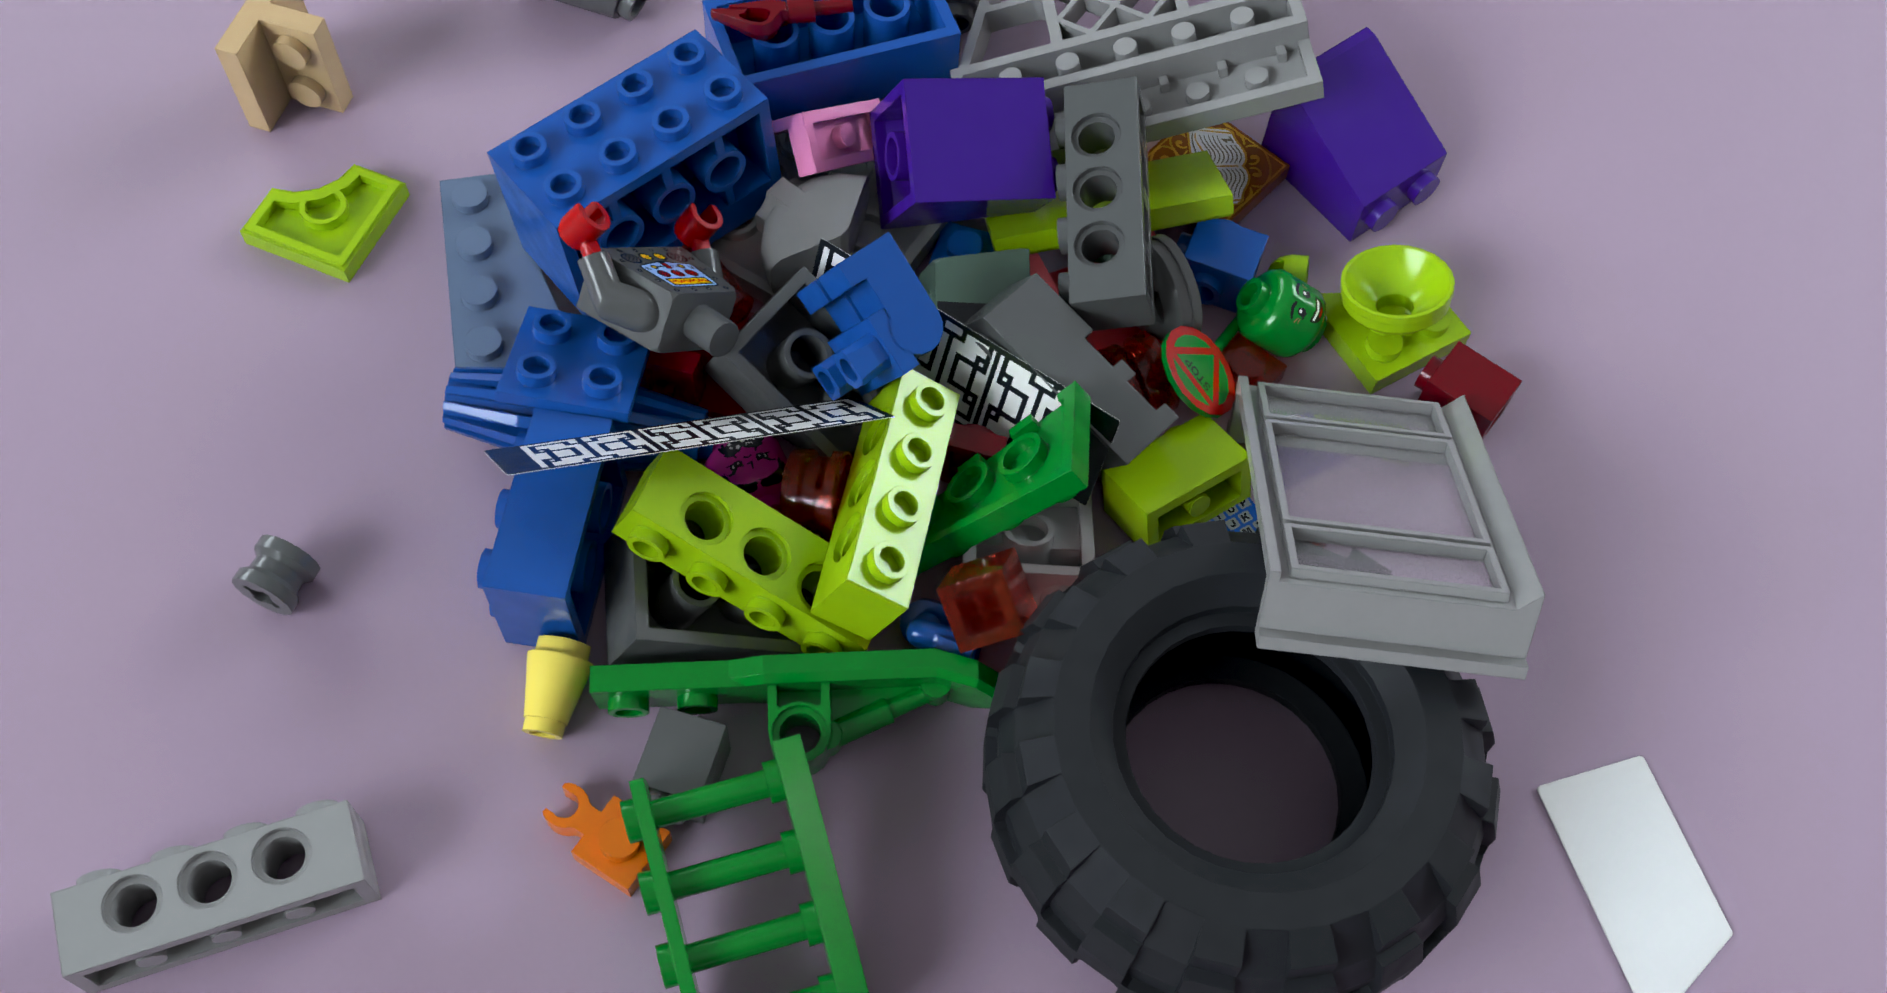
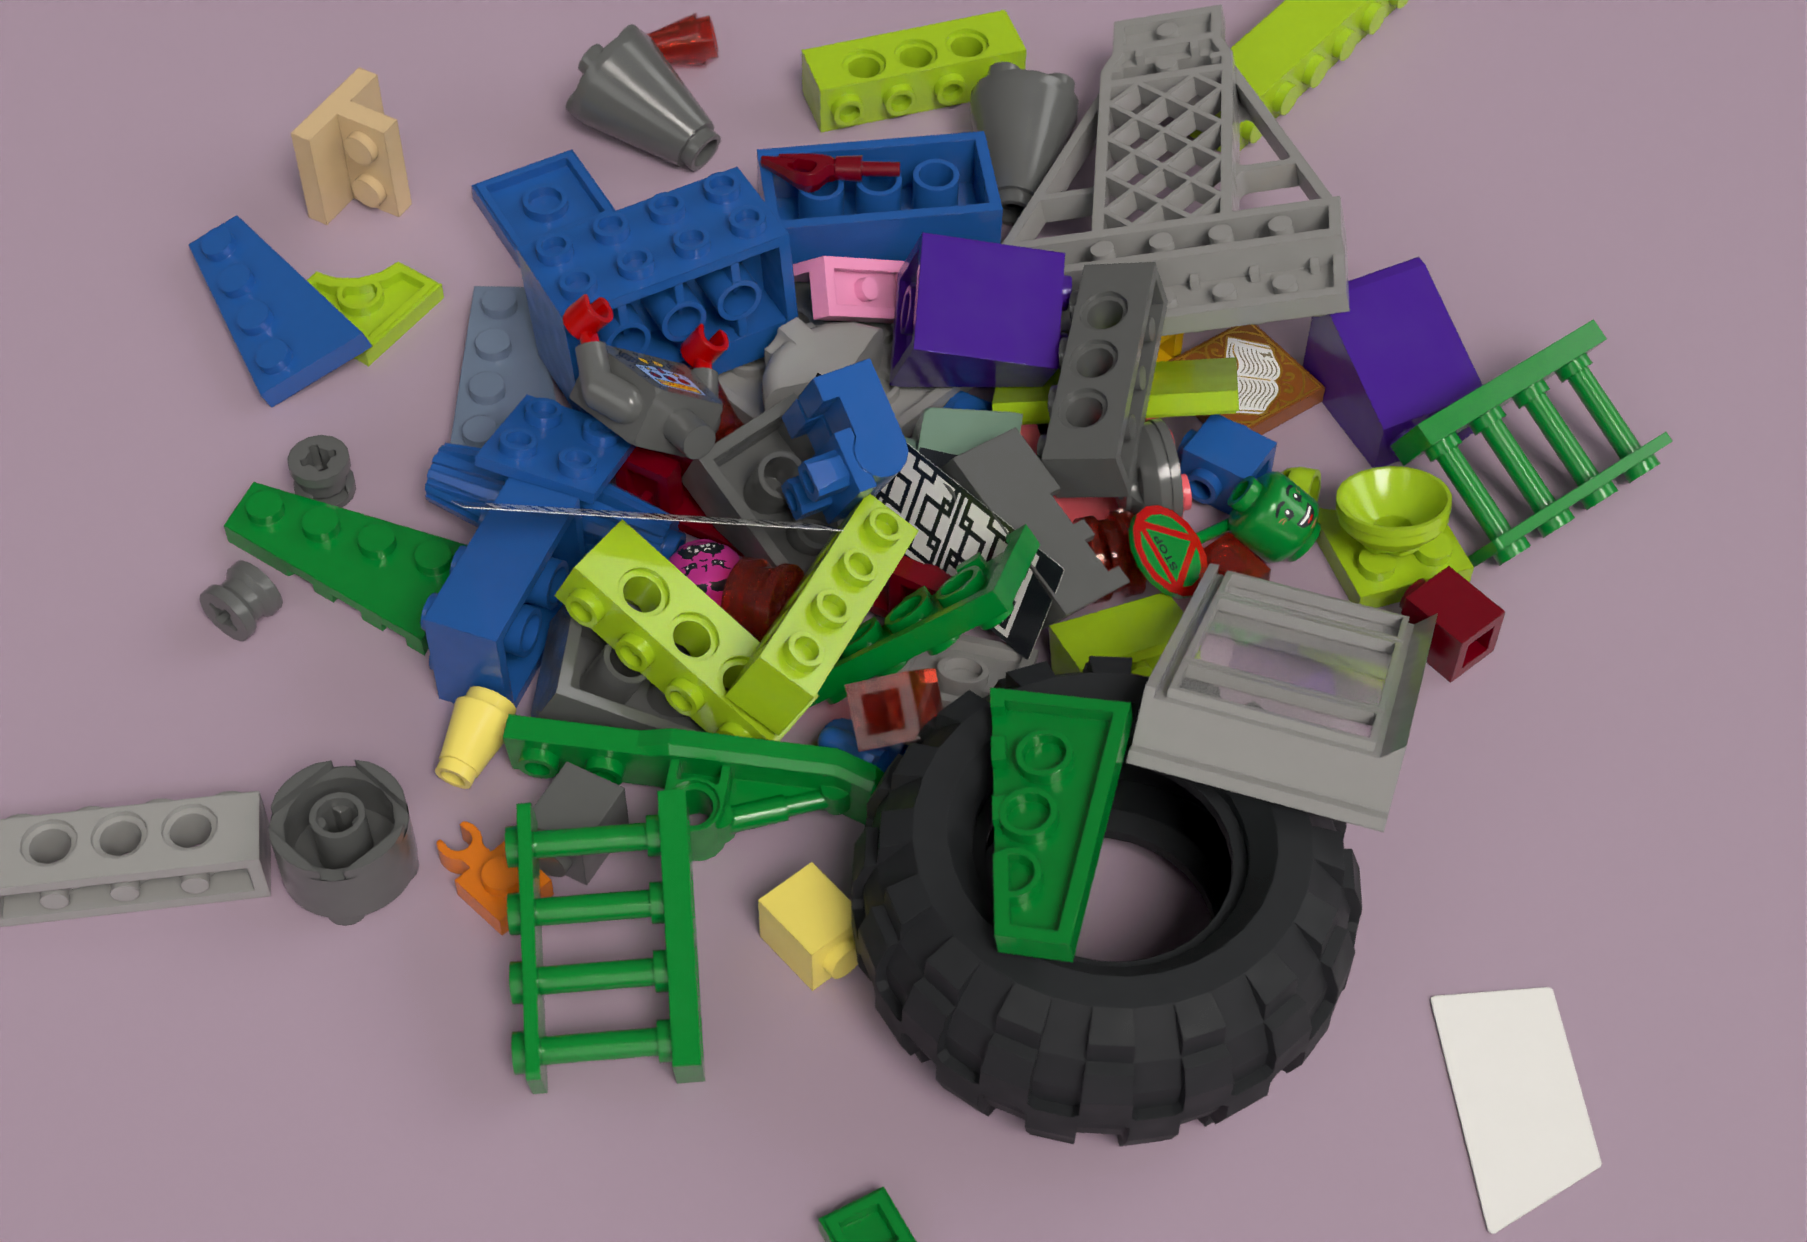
camera: 15 degrees right, 10 degrees down
(239, 245) = (273, 313): none -> blue wing
(322, 429) = (322, 470): none -> dark grey wheel
(405, 507) = (346, 556): none -> green wing
(452, 796) = (343, 839): none -> dark grey brick
(491, 82) = (540, 200): none -> blue tile
(945, 836) = (809, 926): none -> light yellow brick
(1198, 714) = (1050, 811): none -> green wing
(1455, 178) = (1527, 388): none -> green fence

